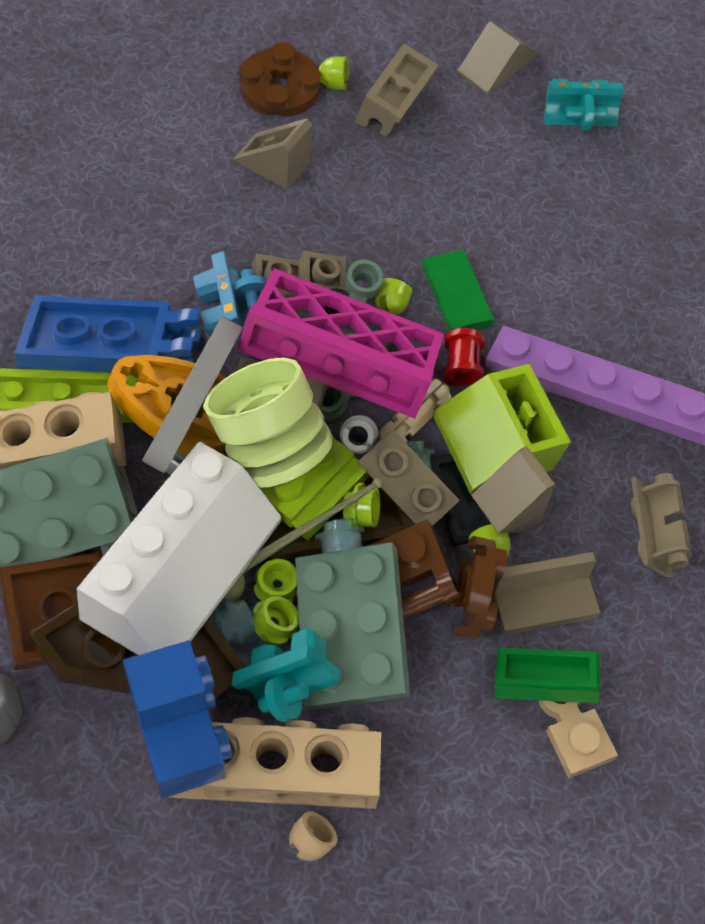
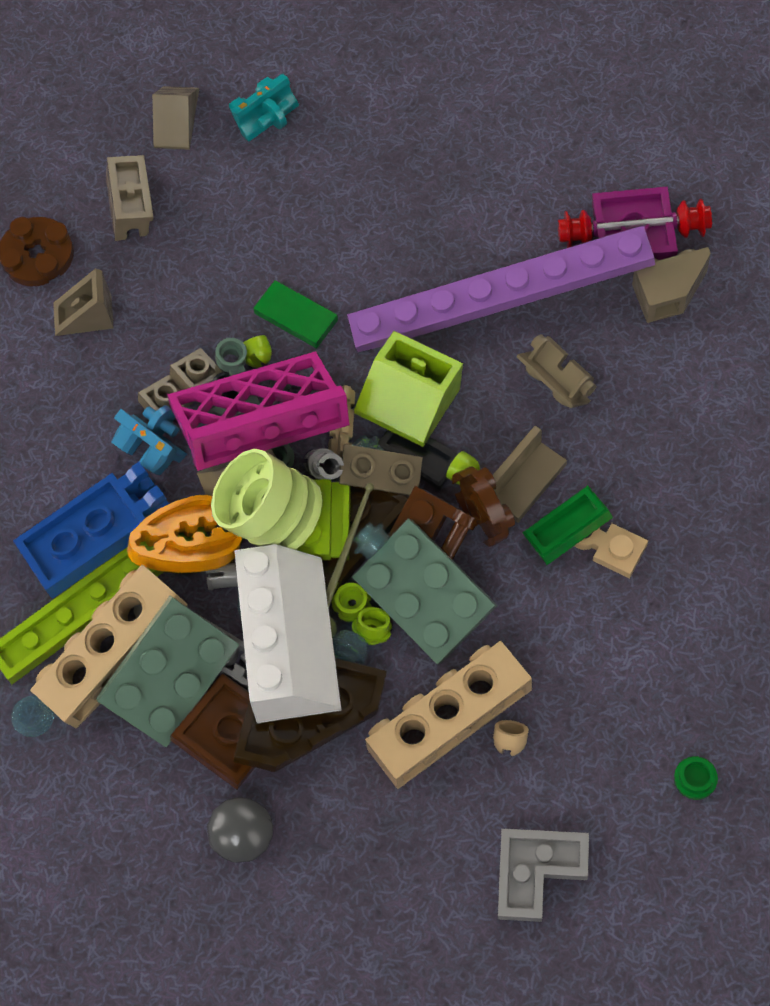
camera: 25 degrees left, 5 degrees up
(172, 706) = (376, 734): blue brick -> none
(192, 395) = (198, 522): light grey beam -> none
(286, 678) = (417, 655): teal hips -> none
(334, 71) = (70, 214): lime hinge -> none
(364, 510) = (372, 512): lime plate -> none
(463, 356) = (341, 357): red bush -> none
(516, 494) = (456, 425): dark tan slope -> none

